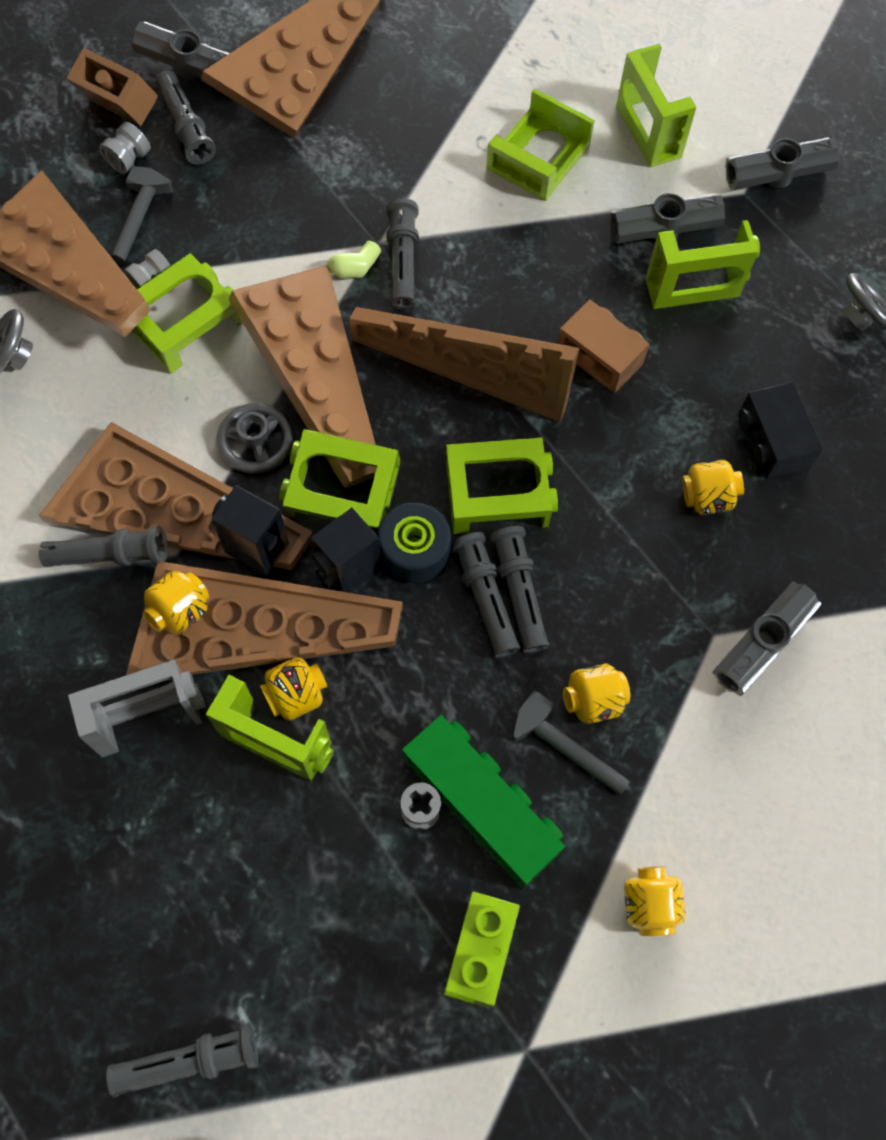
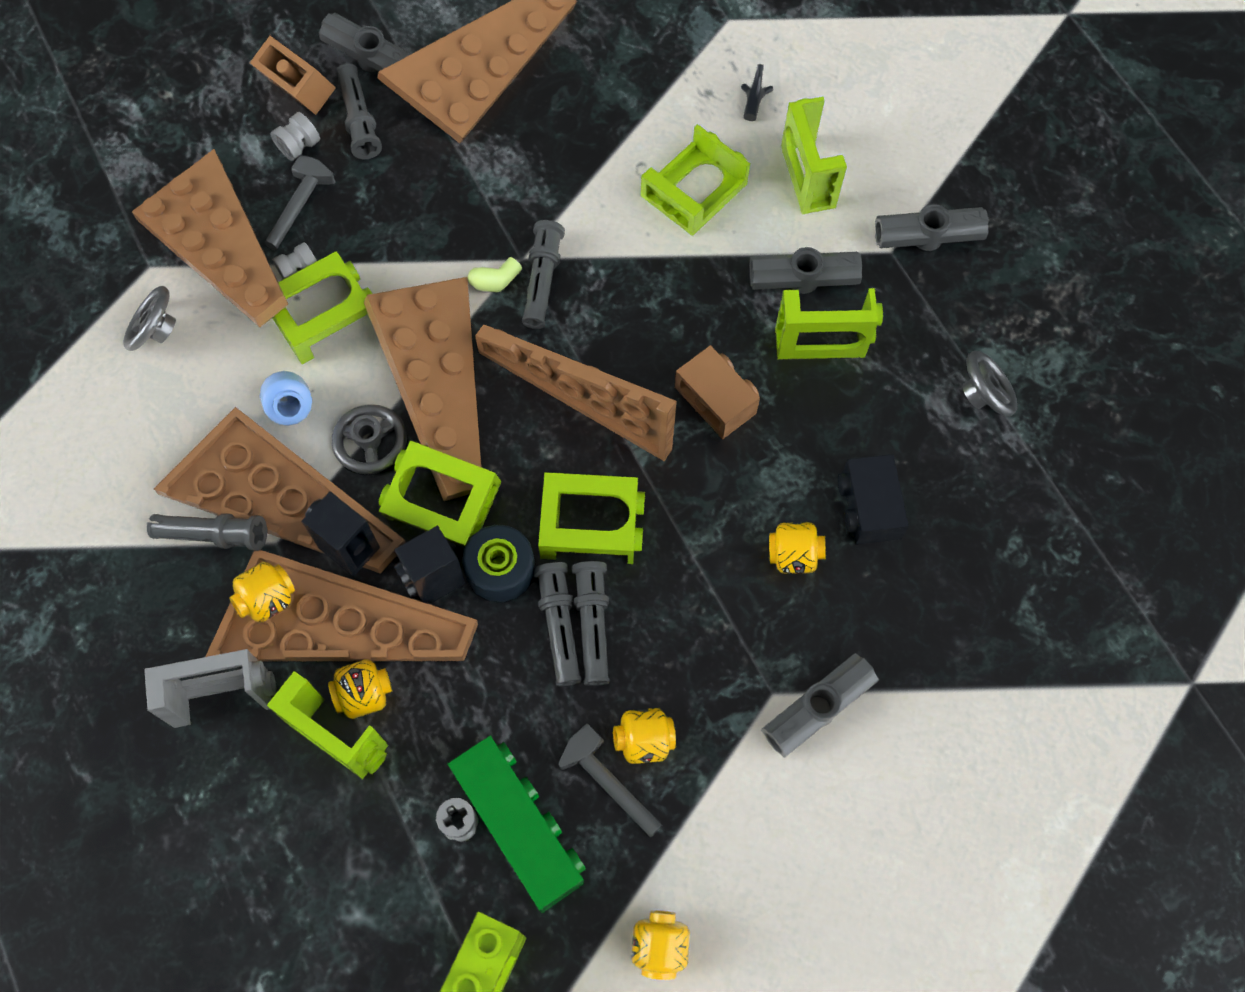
camera: 10 degrees right, 0 degrees up
(173, 412) = (285, 398): none -> light blue head
(582, 57) = (755, 94): none -> black bar

